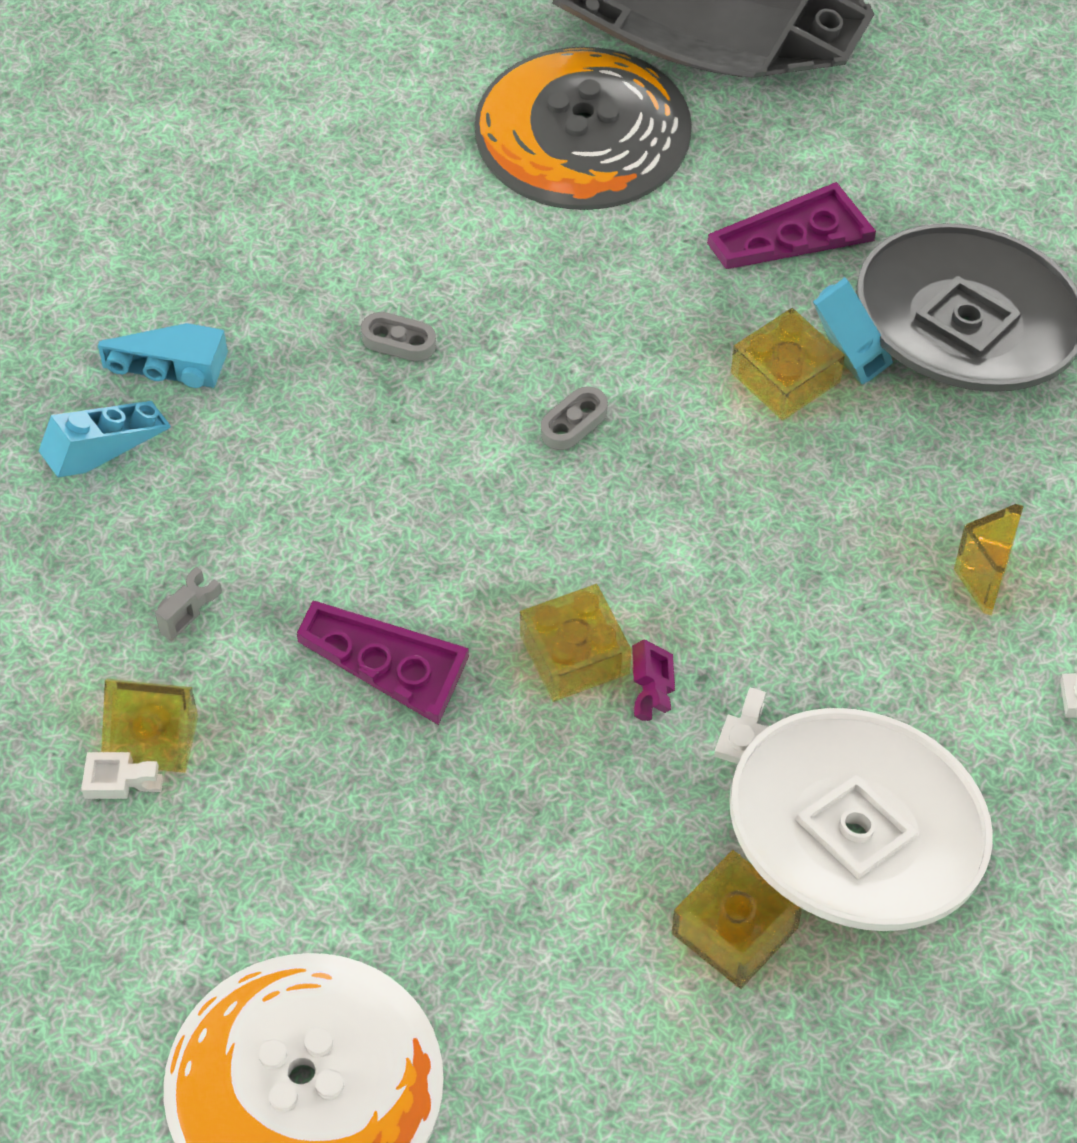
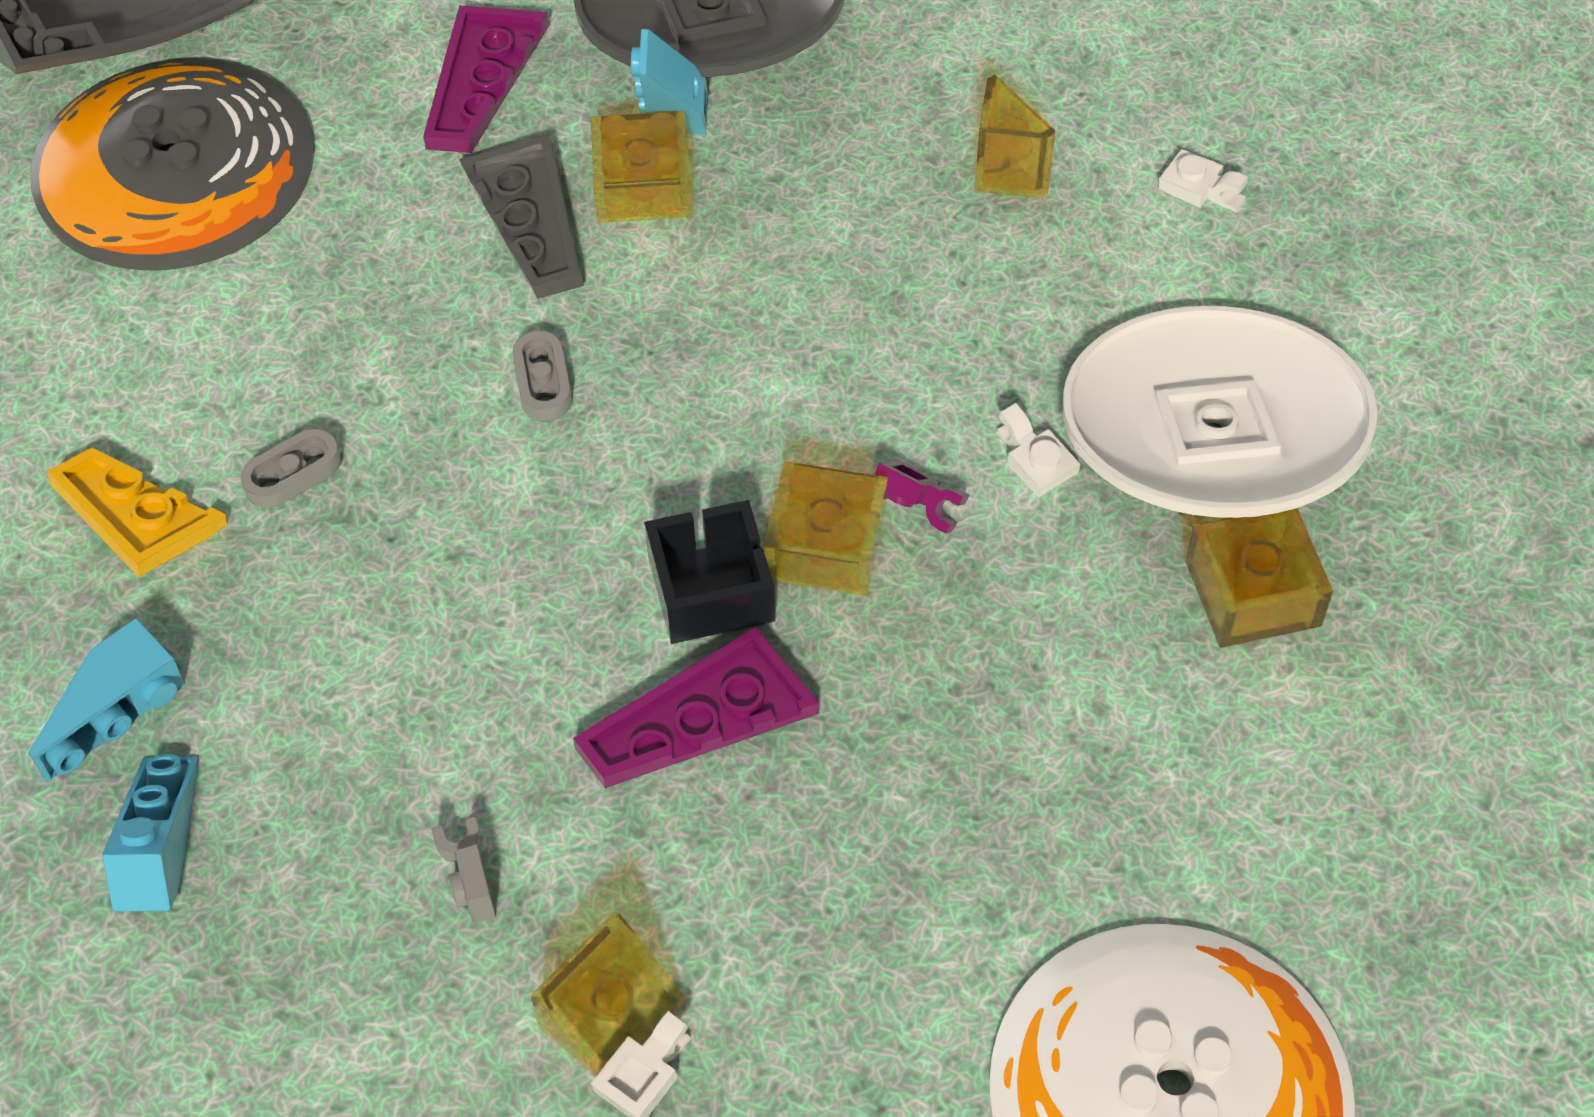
camera: 55 degrees left, 0 degrees up
(306, 282) = (131, 514): none -> yellow wing
(475, 596) = (714, 586): none -> black piece
(706, 325) = (529, 208): none -> dark grey wing

